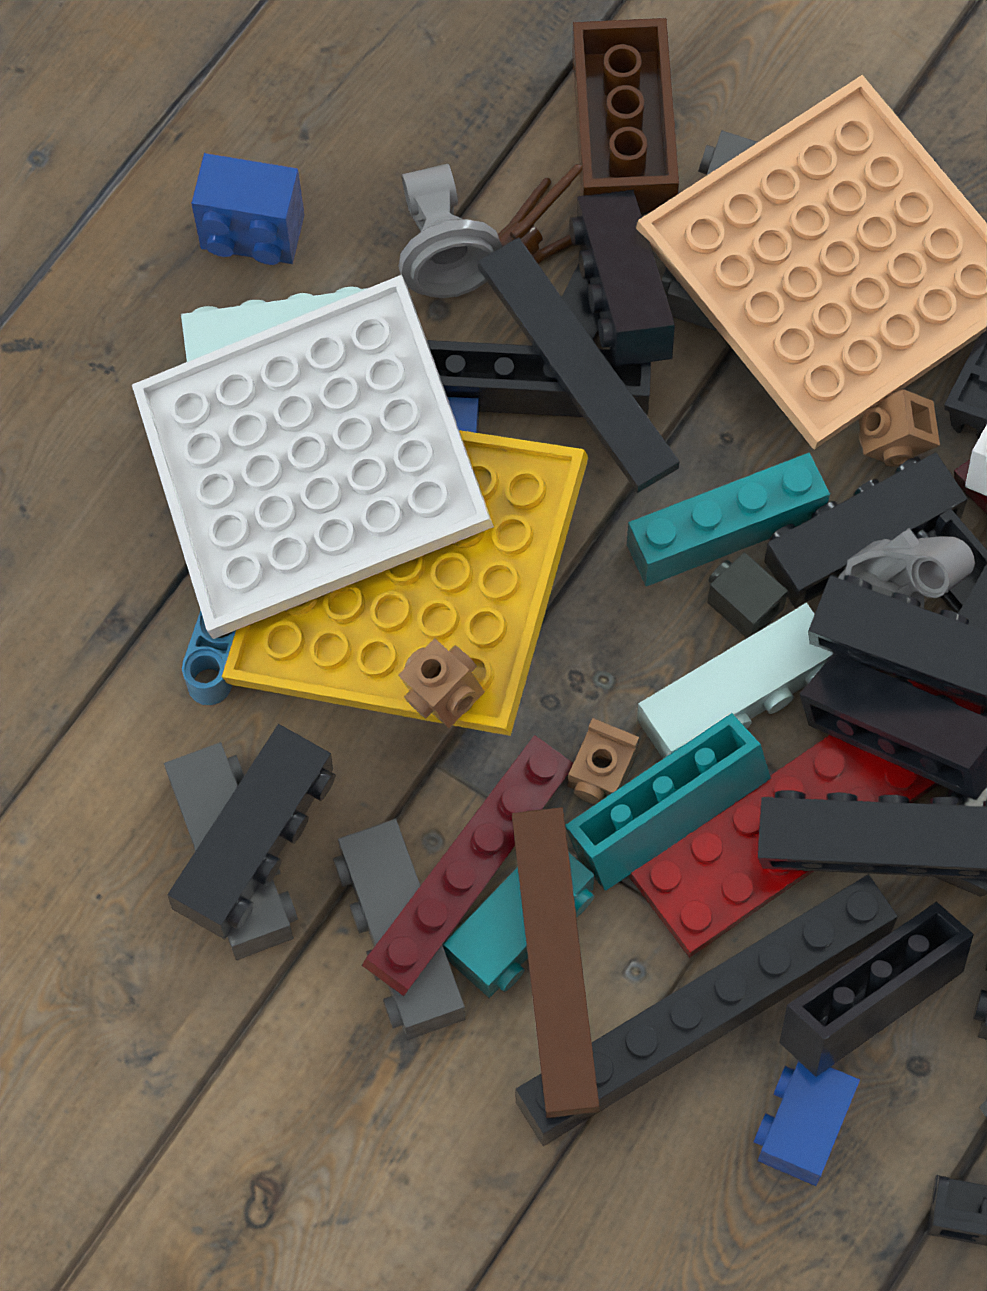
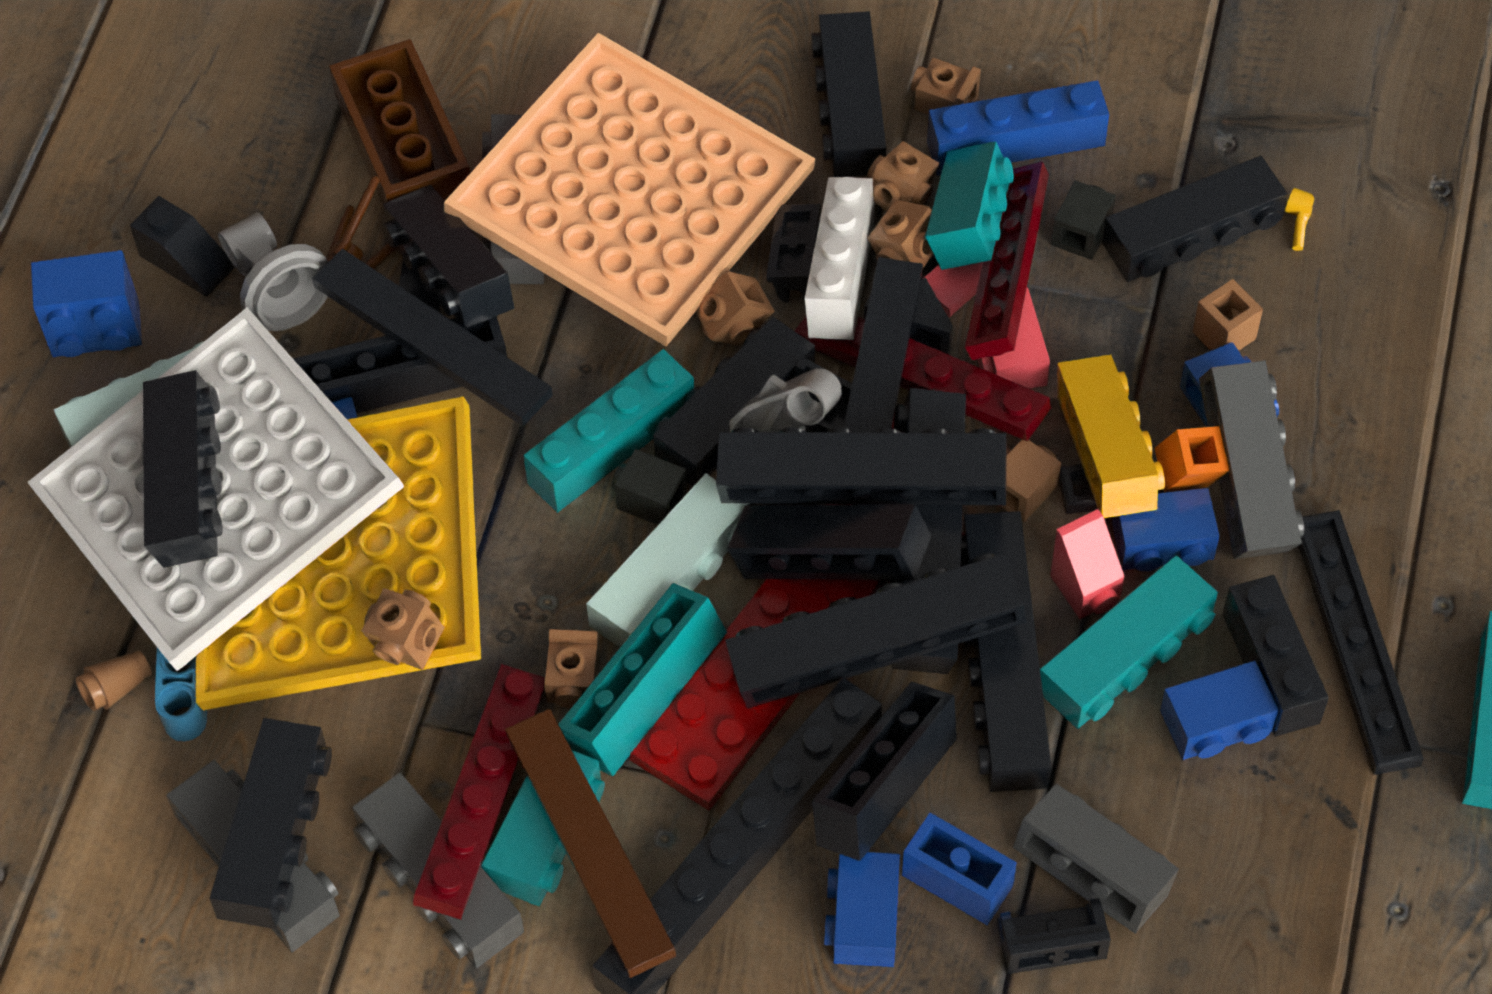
camera: 20 degrees left, 10 degrees down
(152, 618) = (112, 679): none -> medium nougat cone
(280, 431) = (181, 469): none -> black brick
(362, 172) = (180, 246): none -> black slope
(914, 1114) = (958, 868): none -> blue brick

